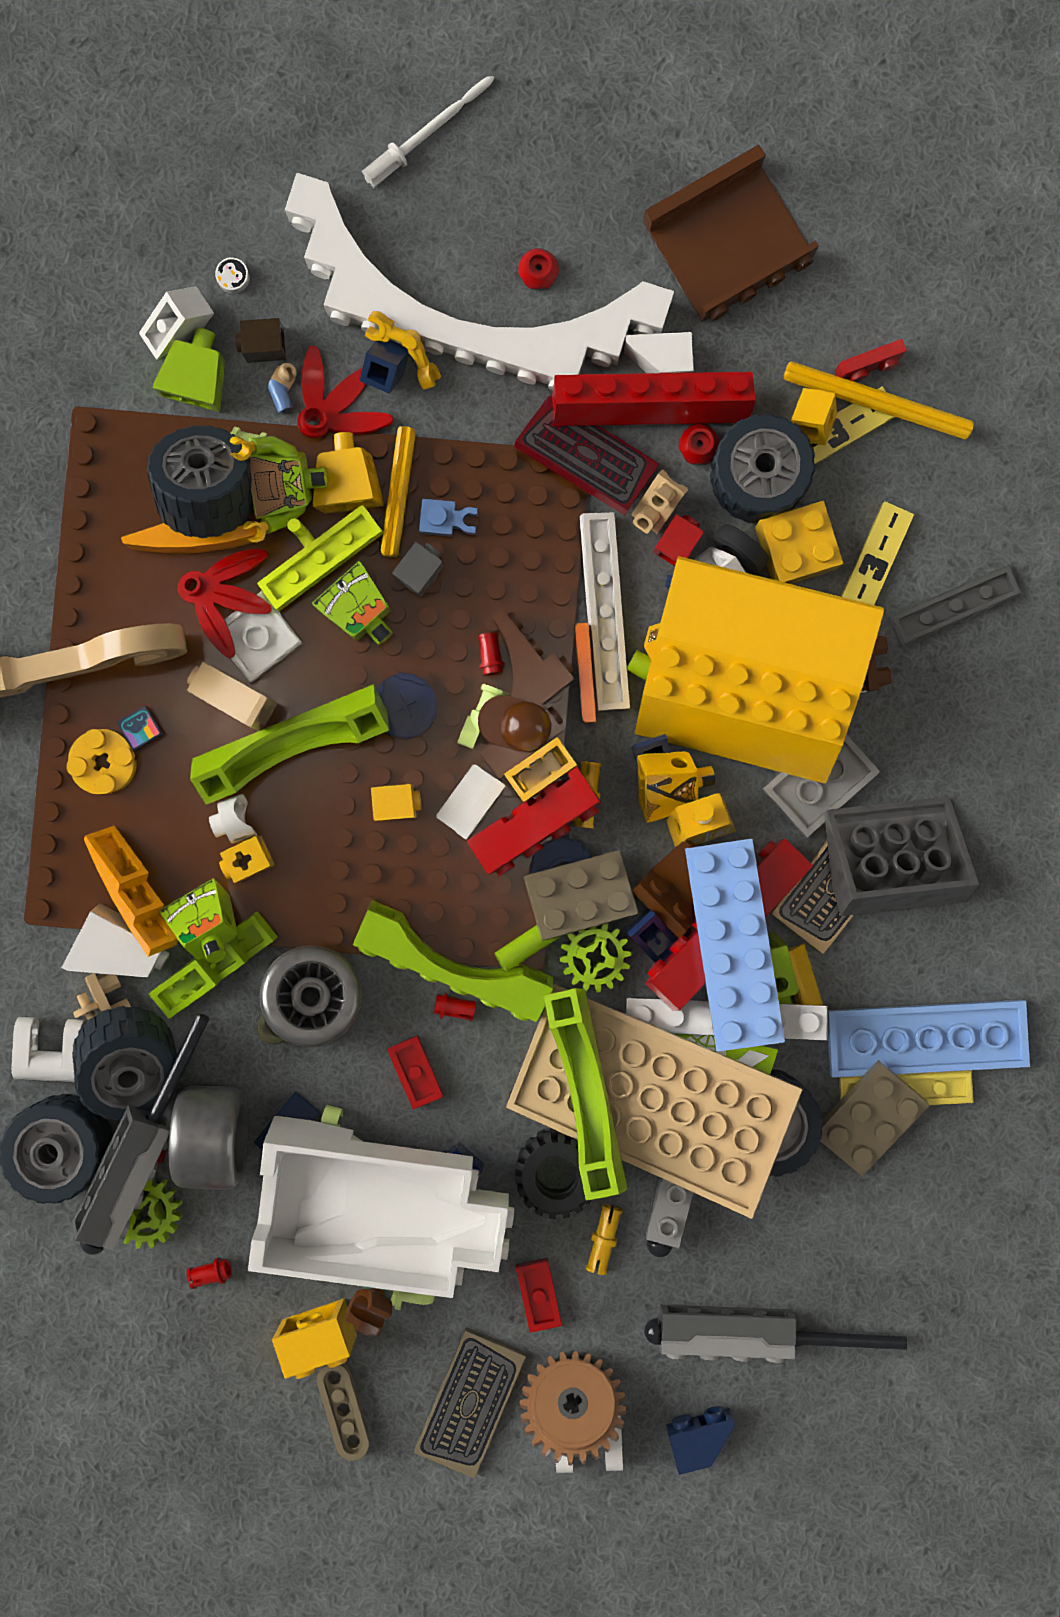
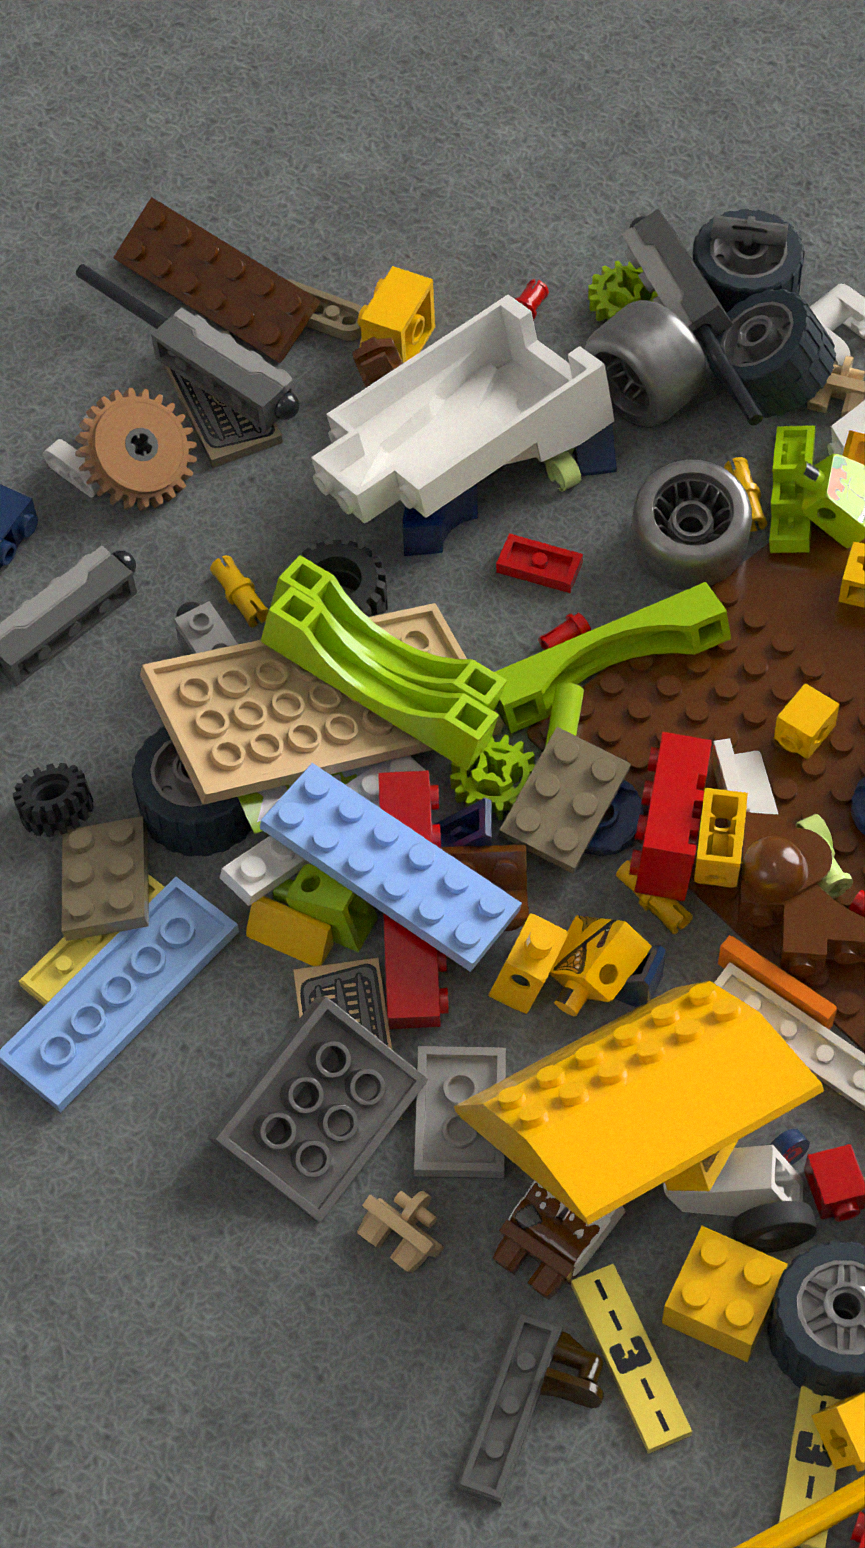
camera: 135 degrees right, 30 degrees down
(46, 1181) = (770, 234): none -> dark grey pin
(243, 992) = (743, 474): none -> yellow pin
(383, 1502) = (216, 280): none -> reddish brown plate
(454, 1438) = (210, 359): none -> piece
(538, 1295) = (250, 507): red plate -> none
(627, 1115) = (442, 720): none -> lime arch
(852, 1216) = (53, 799): none -> black tyre
(898, 600) = (579, 1389): none -> dark brown piece
(915, 747) = (384, 1218): none -> tan hips

